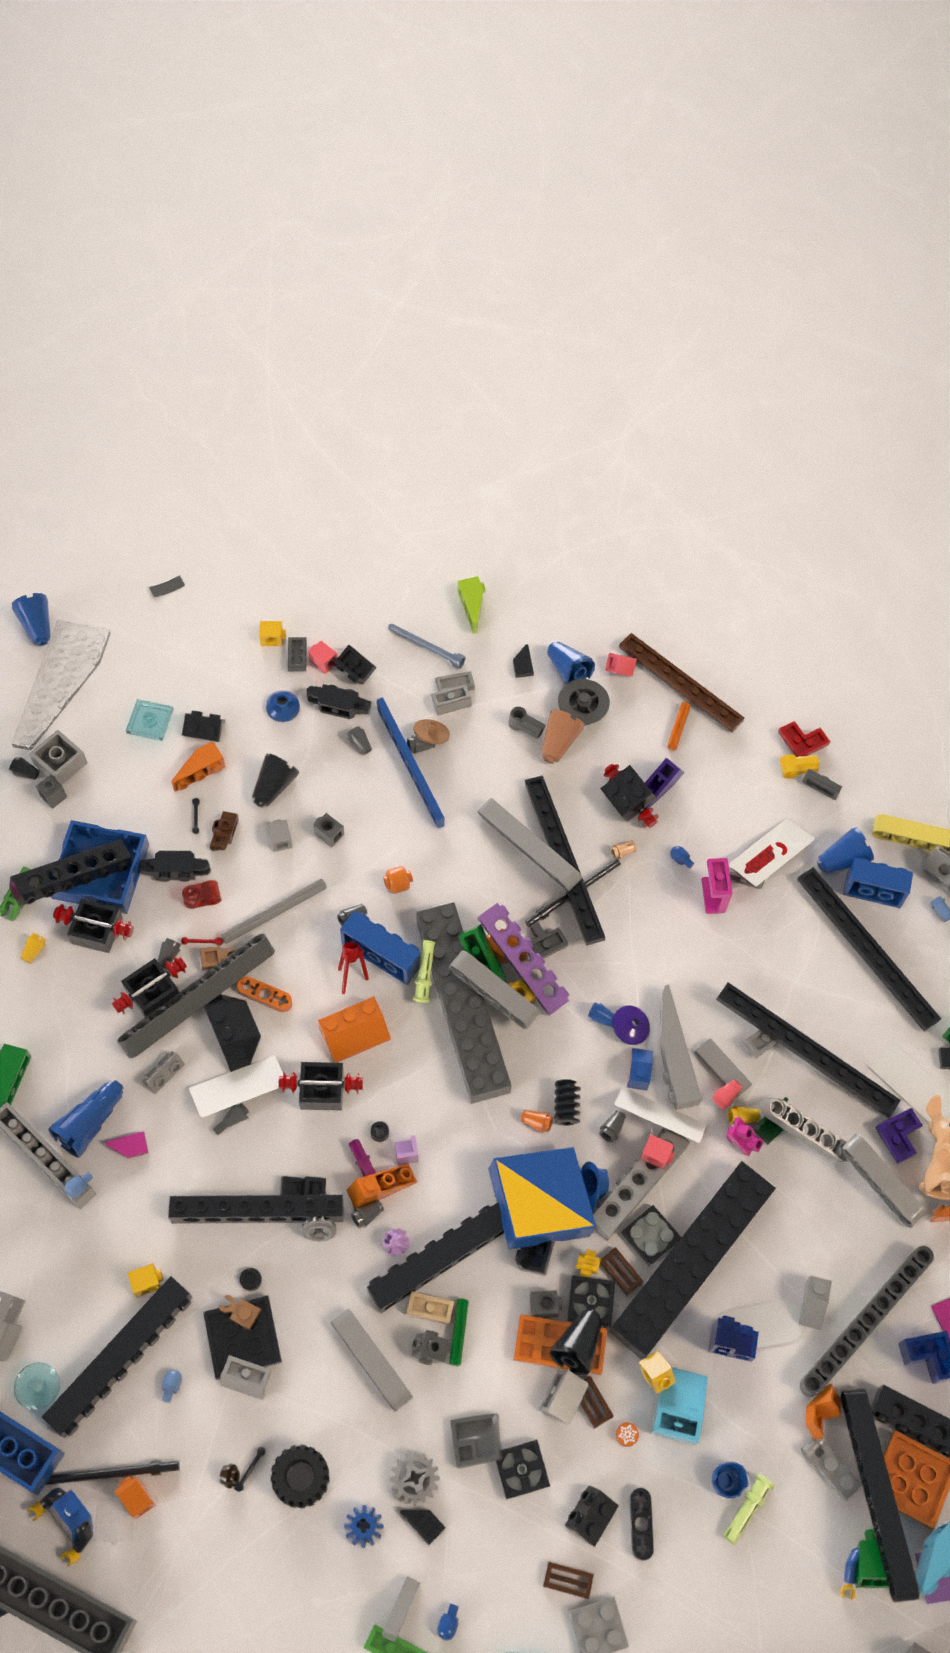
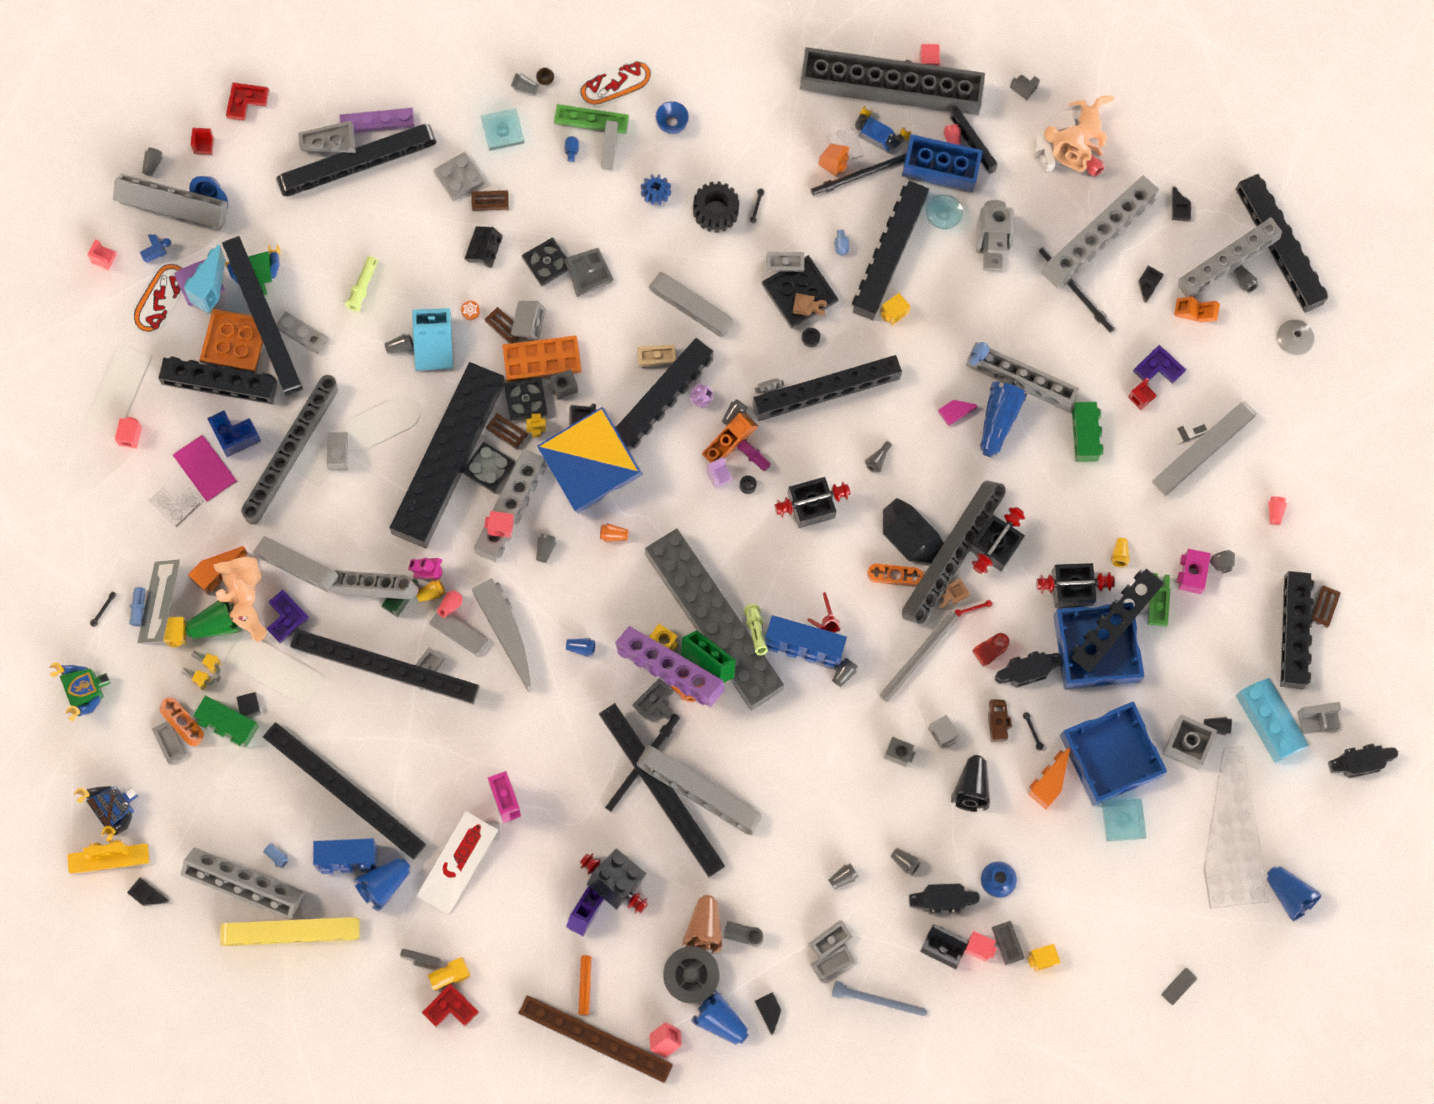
camera: 160 degrees right, 10 degrees up
(51, 791) = (1179, 705): dark grey brick -> none
(132, 771) = (1113, 753): none -> blue tile
(167, 952) = (997, 585): dark grey cone -> none
(168, 1068) = (957, 471): light grey hinge -> none
(202, 726) = (1067, 828): black bracket -> none
(229, 1475) = (770, 194): dark brown plate -> none
(236, 1086) = (884, 483): white sticker -> none
(297, 1624) = (672, 110): none -> blue piece
(302, 1186) = (796, 419): black slope -> none
(354, 1029) = (802, 564): orange slope -> none
(397, 879) = (814, 718): orange head -> none
(401, 1484) = (627, 239): light grey gear -> none
(410, 763) = (847, 851): blue tile -> none
(424, 1523) = (611, 207): black tile -> none
(429, 1348) = (646, 323): dark grey brick -> none
(431, 731) = (837, 892): medium nougat piece -> none
(458, 1332) = (627, 346): green axle -> none
(471, 596) = (849, 1074): lime slope -> none
(494, 989) = (687, 624): light grey beam -> none
(566, 1103) = (589, 553): black piece -> none
(578, 1343) = (526, 355): black cone -> none
(595, 1182) = (548, 489): blue piece -> none
(620, 850) = (607, 821): light nougat pin -> none
(624, 1026) = (560, 645): dark purple dish -> none
(637, 1542) = (449, 257): black beam -> none
(640, 1069) = (534, 607): blue slope -> none
(657, 1372) = (457, 353): yellow brick -> none
(660, 1115) = (505, 566): white sticker -> none
(681, 856) = (546, 833): blue cylinder -> none
(718, 1413) = (400, 344): none -> dark grey cone
(730, 1479) = (381, 298): blue hair -> none
(733, 1339) = (400, 398): clear blue brick -> none
(822, 1407) = (312, 374): orange slope -> none

